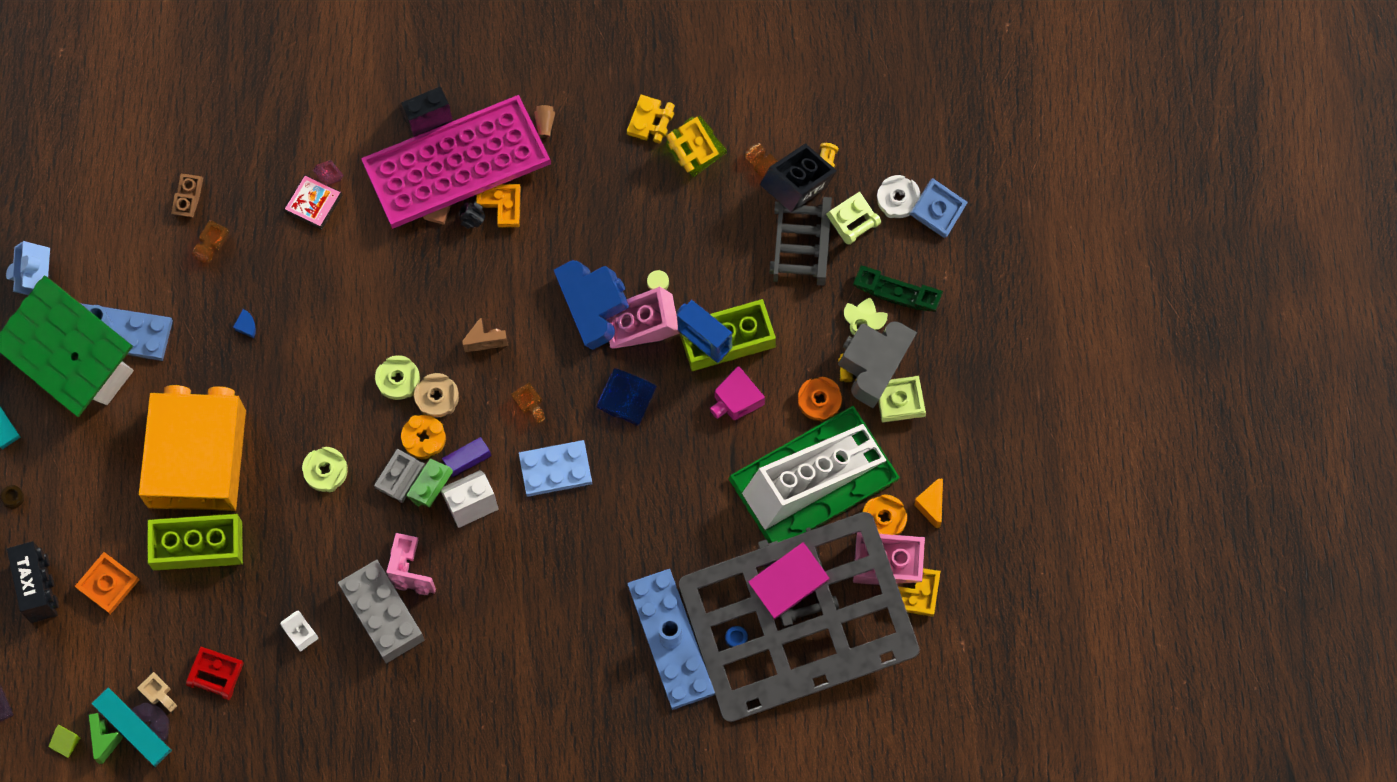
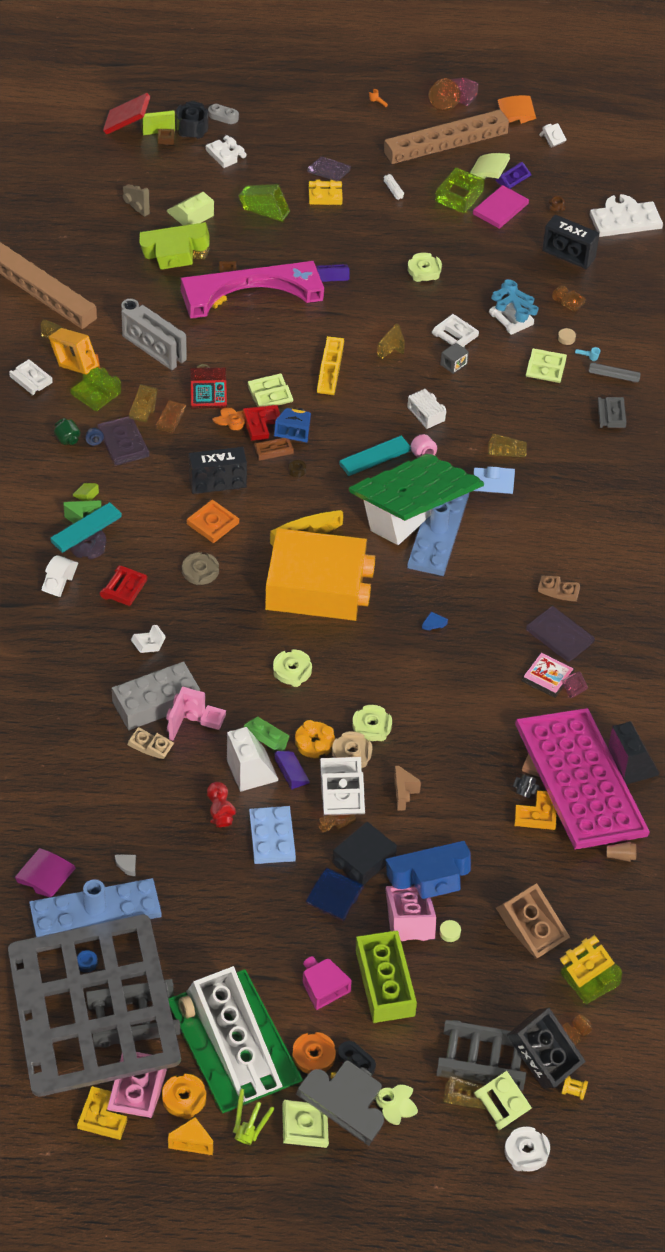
camera: 90 degrees right, 20 degrees down
(112, 468) = (316, 523): none -> yellow slope
(155, 690) = (116, 546): tan plate -> none
(179, 590) = (200, 568): none -> dark tan tile
(195, 542) = (236, 574): lime brick -> none
(207, 748) = (58, 572): none -> white brick
(212, 236) = (516, 602): clear orange plate -> none
(253, 192) = (560, 634): none -> clear purple tile
(399, 475) = (281, 716): light grey plate -> none
(445, 611) = (152, 745): none -> tan slope
(495, 396) = (342, 786): none -> white bracket
(537, 518) = (221, 809): none -> red animal
(574, 370) = (364, 853): none -> black brick
(609, 614) = (126, 863): none -> light grey tile
(632, 697) = (45, 872): none -> magenta slope
(639, 202) = (533, 921): none -> medium nougat slope
(644, 117) = (626, 936): yellow plate -> none
(704, 331) = (380, 938): blue window -> none
(788, 524) = (186, 1007): none -> tan tile
(789, 580) = (126, 993): dark pink tile -> none
(820, 358) = (359, 1056): none -> black plate
(844, 268) = (457, 1097): none -> clear yellow slope
(896, 291) = (424, 1133): dark green slope -> none
(918, 452) = (245, 1132): none -> lime plant
(938, 208) = (511, 1184): medium blue tile -> none

